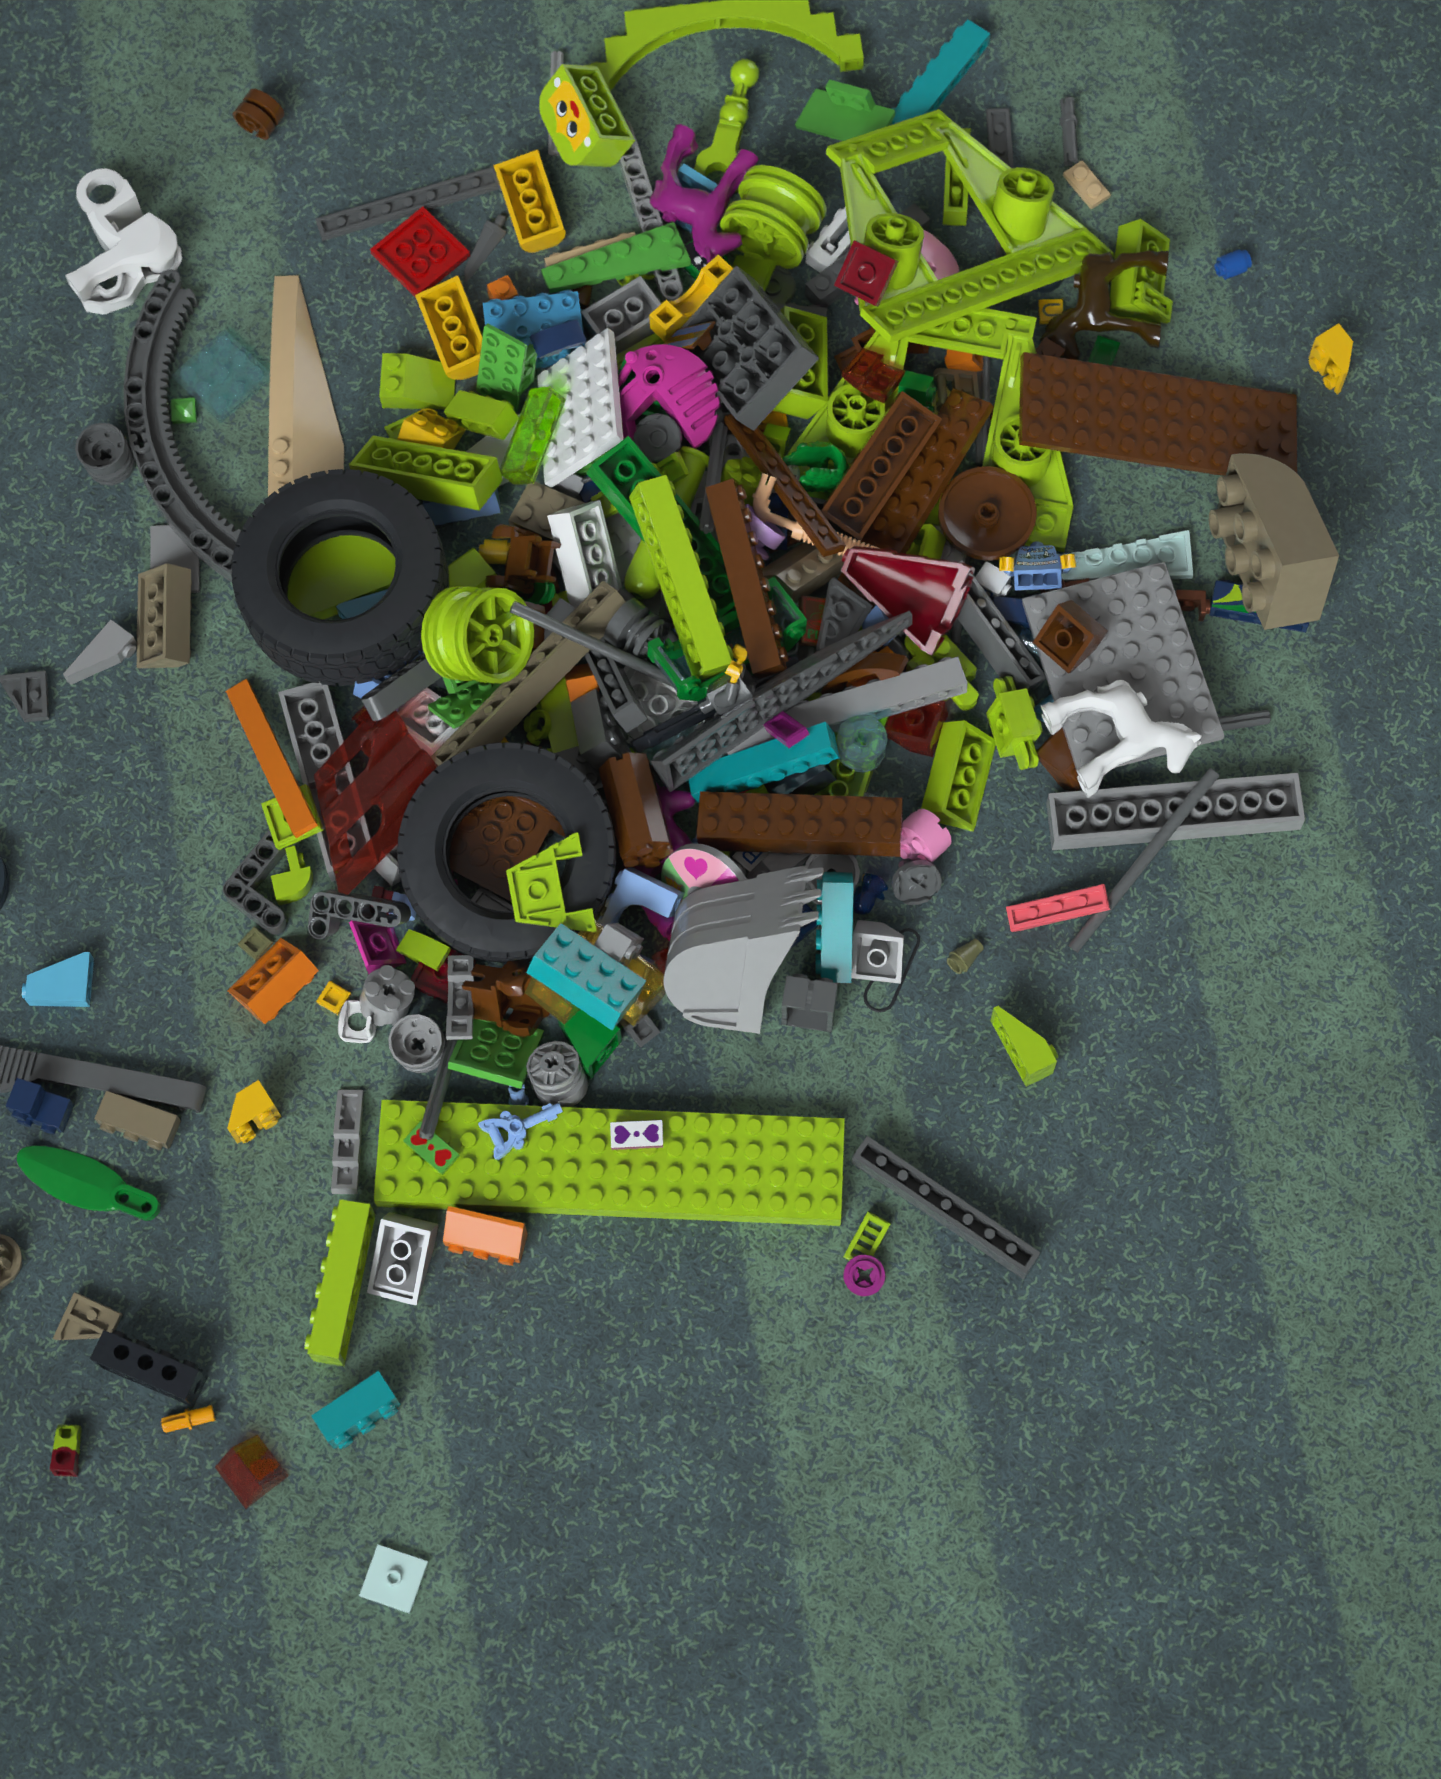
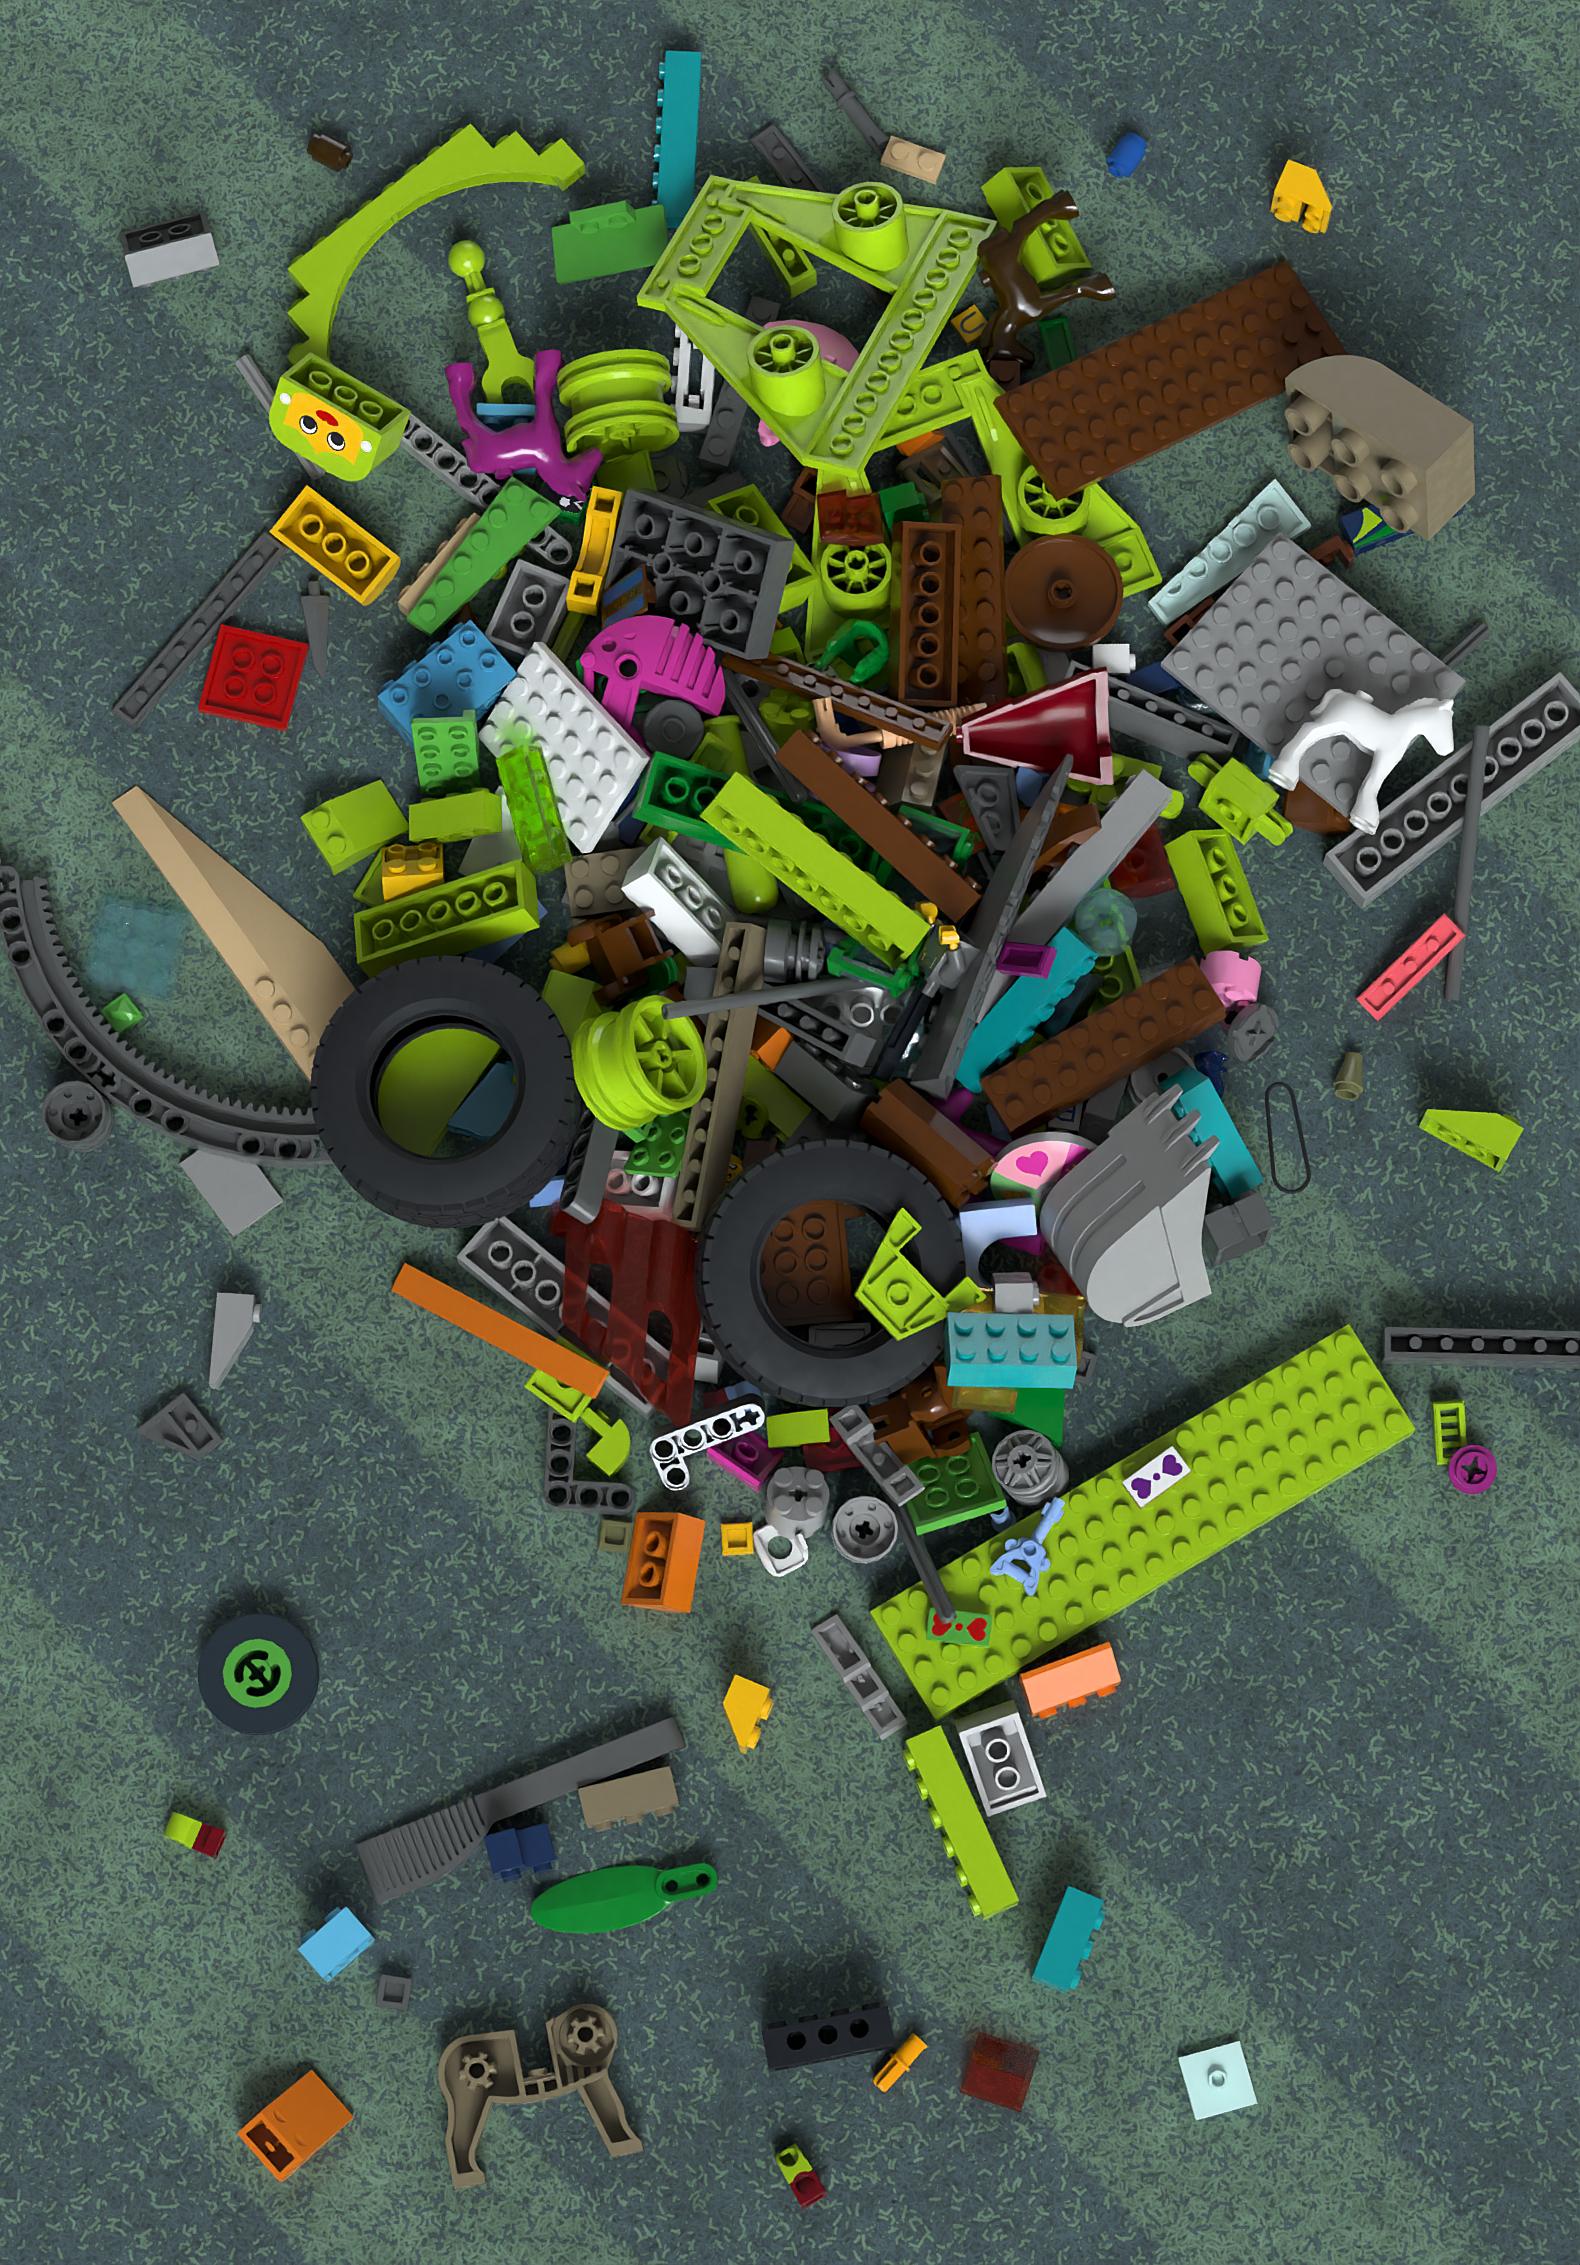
camera: 35 degrees left, 5 degrees up
(62, 983) = (445, 1710): medium azure slope -> none
(86, 1319) = (724, 2033): dark tan wing -> none
(164, 617) = (269, 1254): dark tan slope -> none
(452, 328) = (355, 740): yellow brick -> none
(502, 289) = (379, 668): orange brick -> none
(557, 338) = (489, 686): dark blue slope -> none
(866, 273) = (785, 417): dark red plate -> none
(877, 952) = (1265, 1128): light grey slope -> none
(1037, 567) = (1154, 617): medium blue torso -> none
(1069, 635) = (1242, 674): reddish brown slope -> none
(1153, 306) = (1075, 256): lime tile -> none

